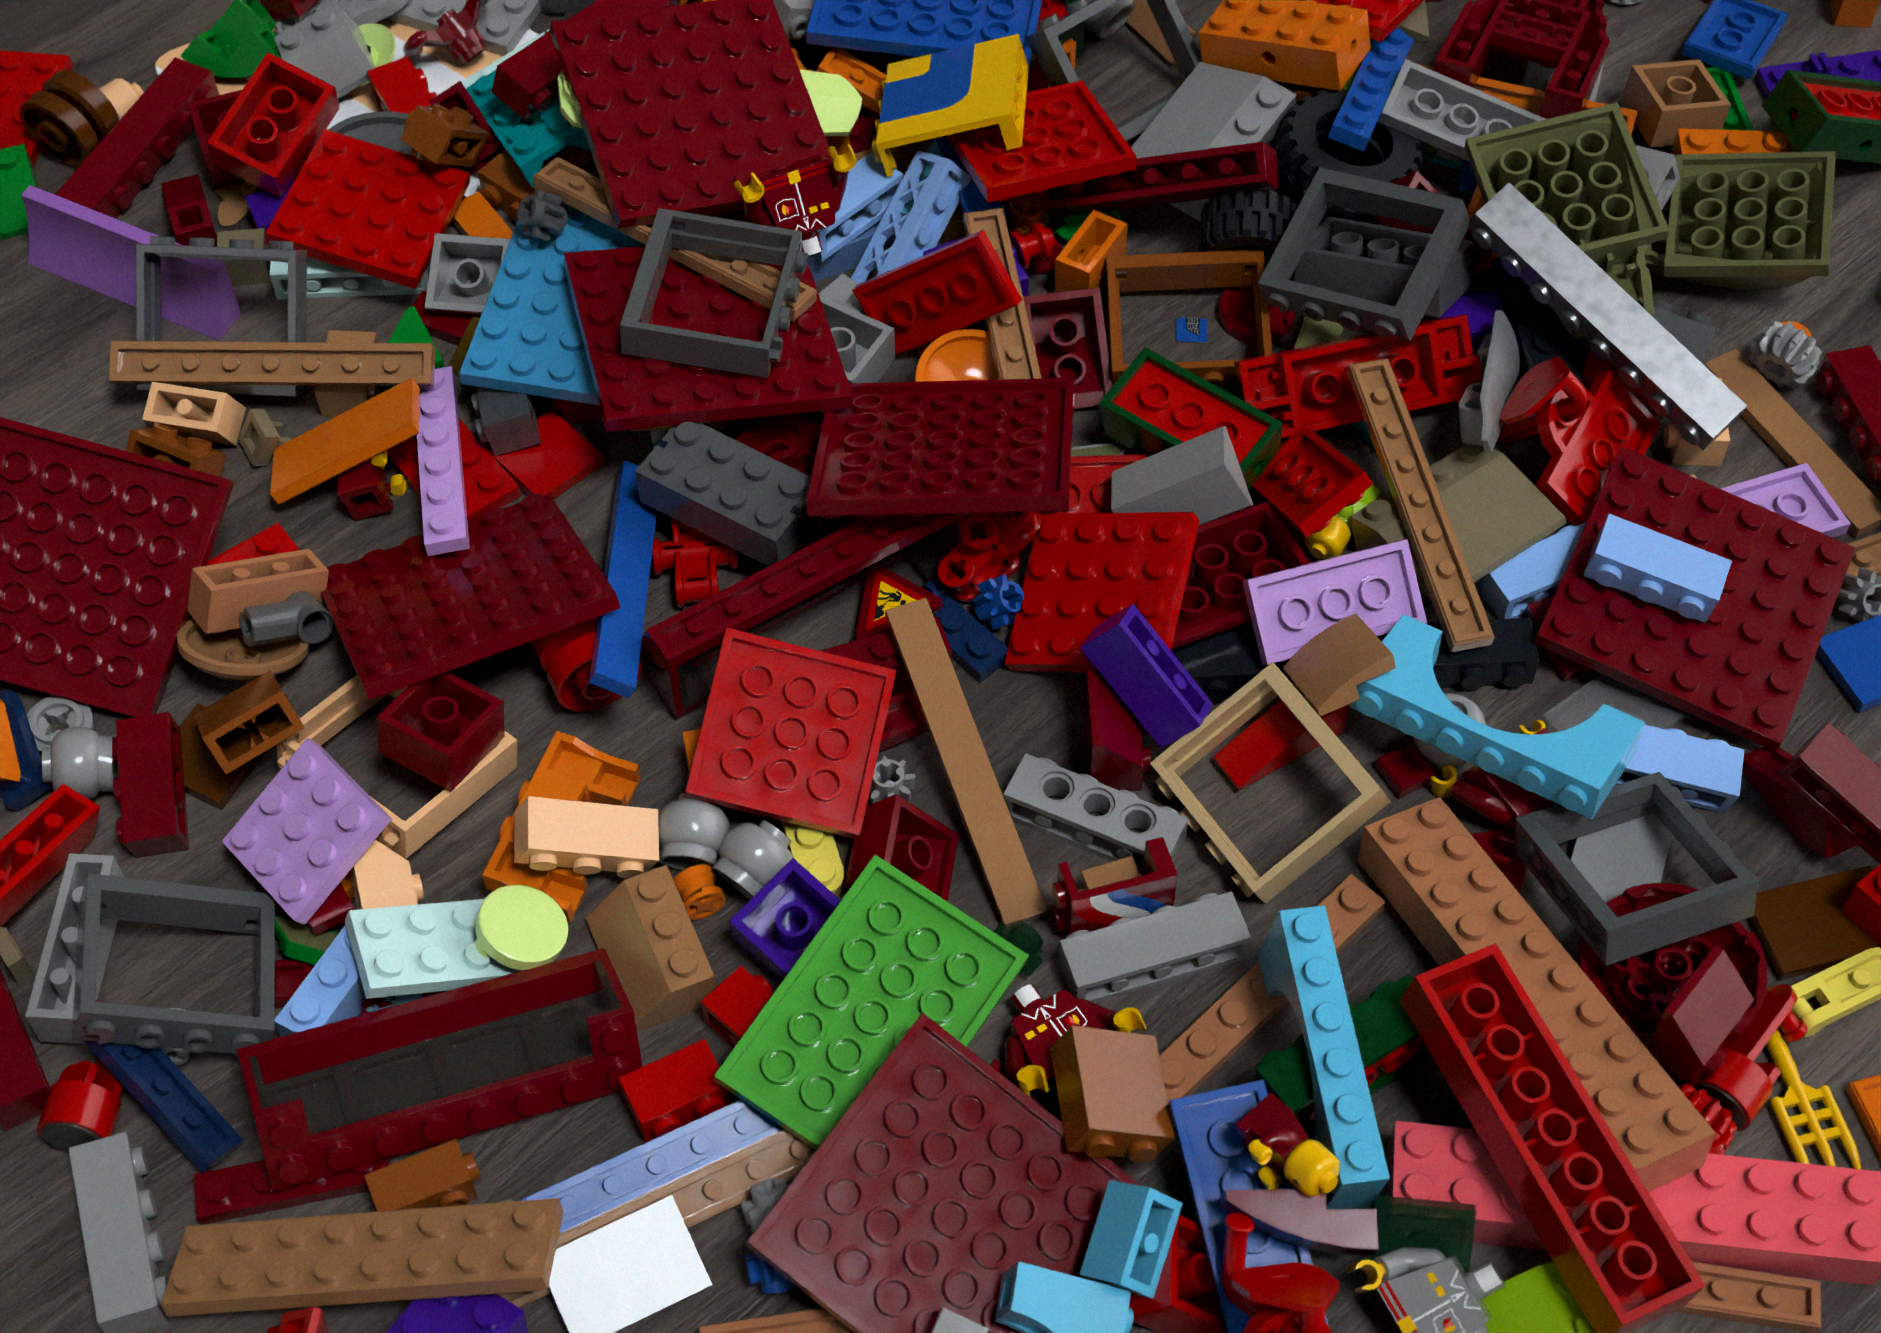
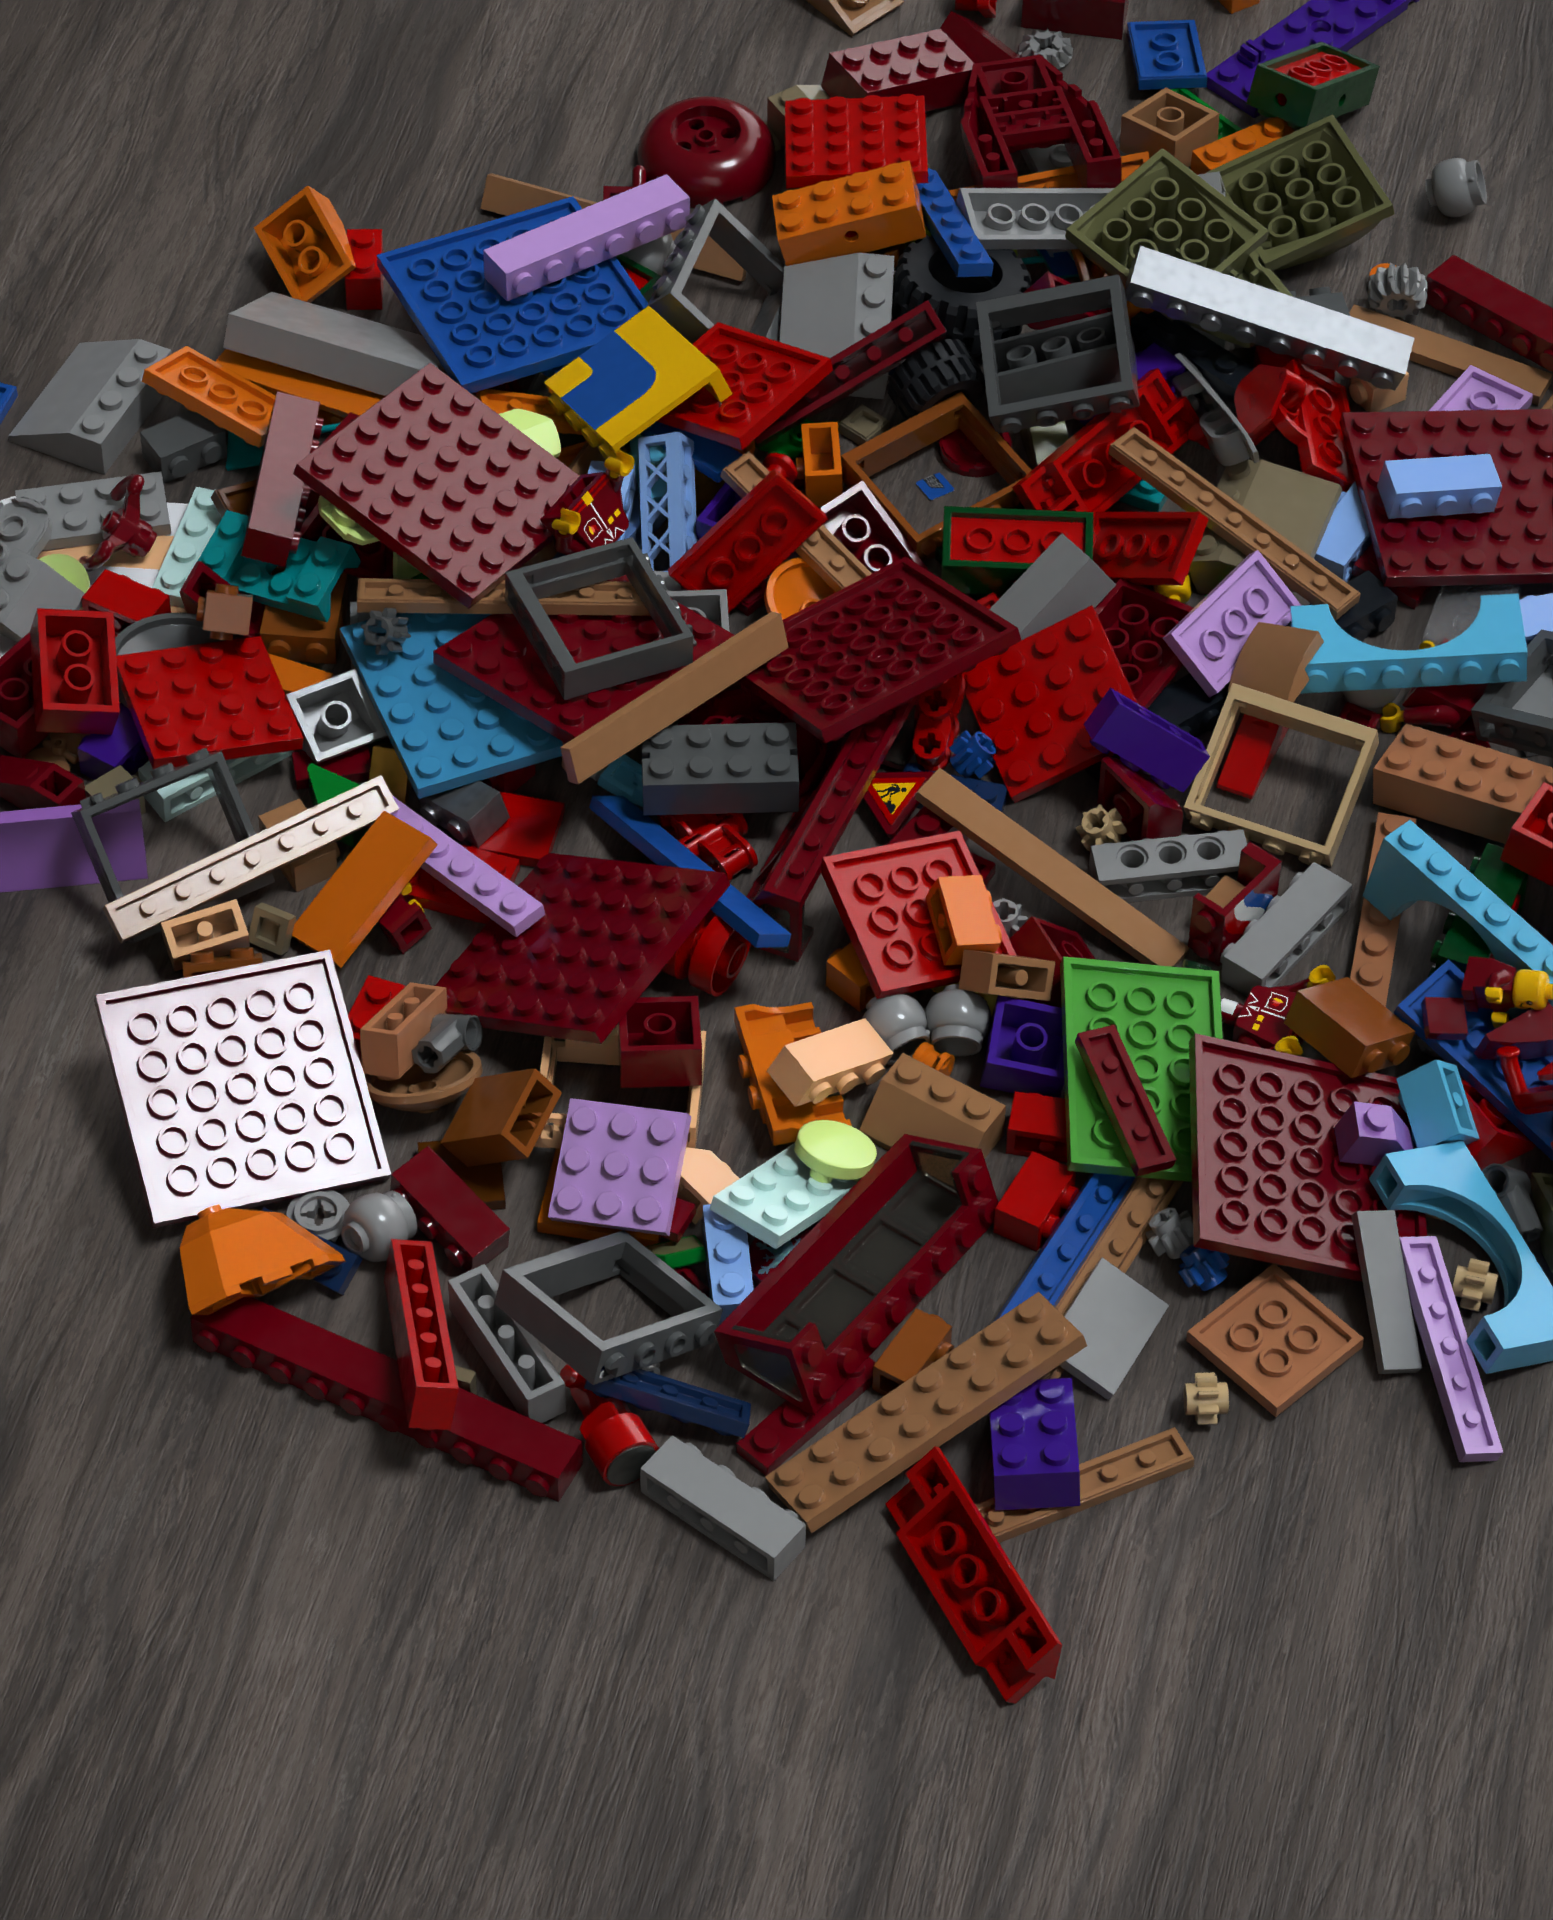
camera: 35 degrees left, 5 degrees down
(720, 401) = (674, 698): none -> medium nougat tile
(811, 1042) = (1125, 1100): none -> dark red plate
(818, 763) = (962, 917): none -> orange brick
(818, 842) = (1006, 975): none -> medium nougat brick
(1039, 1233) = (1369, 1133): none -> medium lavender slope
(1058, 740) = (1101, 827): none -> tan gear
(1169, 239) = (863, 425): none -> dark tan tile
(1208, 1143) = (1444, 1018): none -> dark red tile

